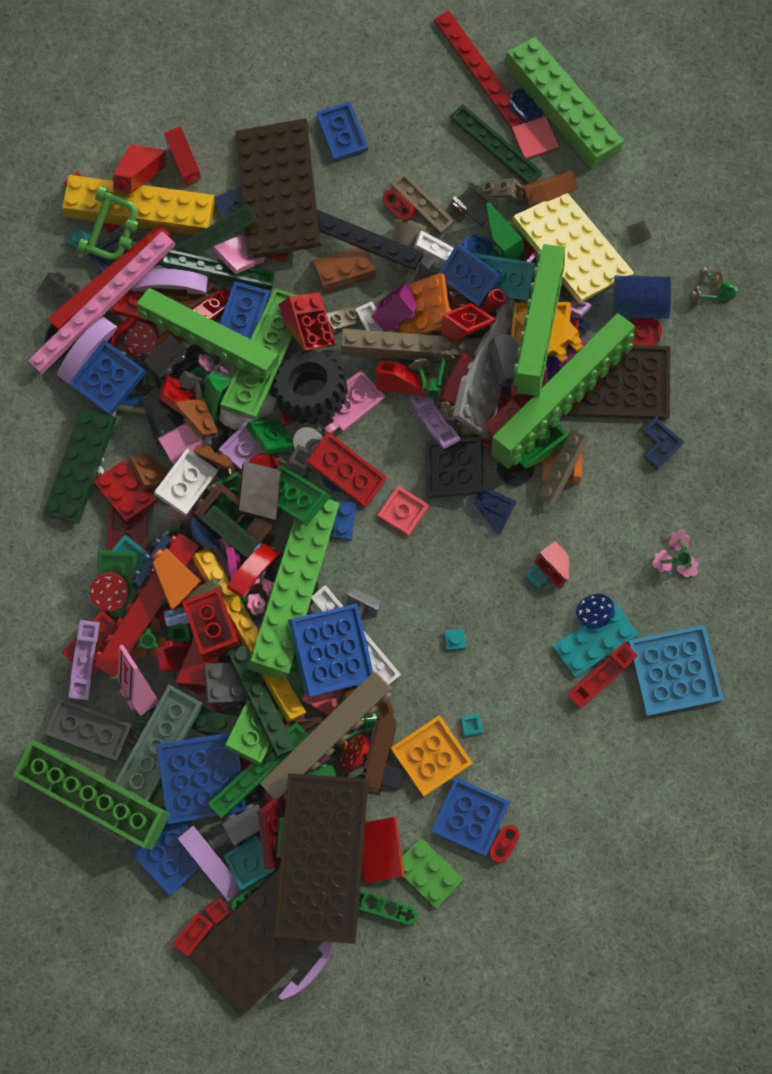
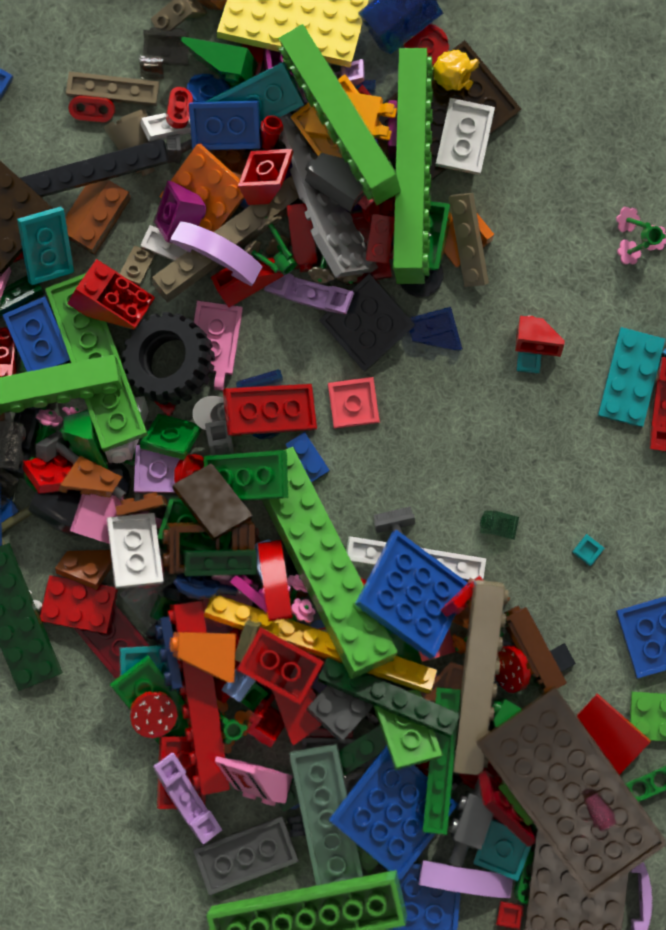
camera: 45 degrees left, 10 degrees up
(296, 260) = (45, 245): none -> teal plate
(327, 883) = (600, 813): none -> clear pink cone
(355, 679) = (457, 603): none -> red plate
(362, 451) = (261, 380): none -> clear blue tile
(398, 346) = (217, 249): none -> lavender slope
(428, 661) = (499, 524): none -> clear green bracket
(431, 756) = (578, 609): light orange plate -> none
(447, 243) = (178, 107): none -> red plate
(455, 639) = (505, 483): teal plate -> none
(595, 611) = (610, 350): clear blue tile -> none
(616, 403) = (465, 136): none -> white plate
(644, 356) = (454, 70): none -> yellow animal
(665, 443) = (537, 135): dark blue plate -> none

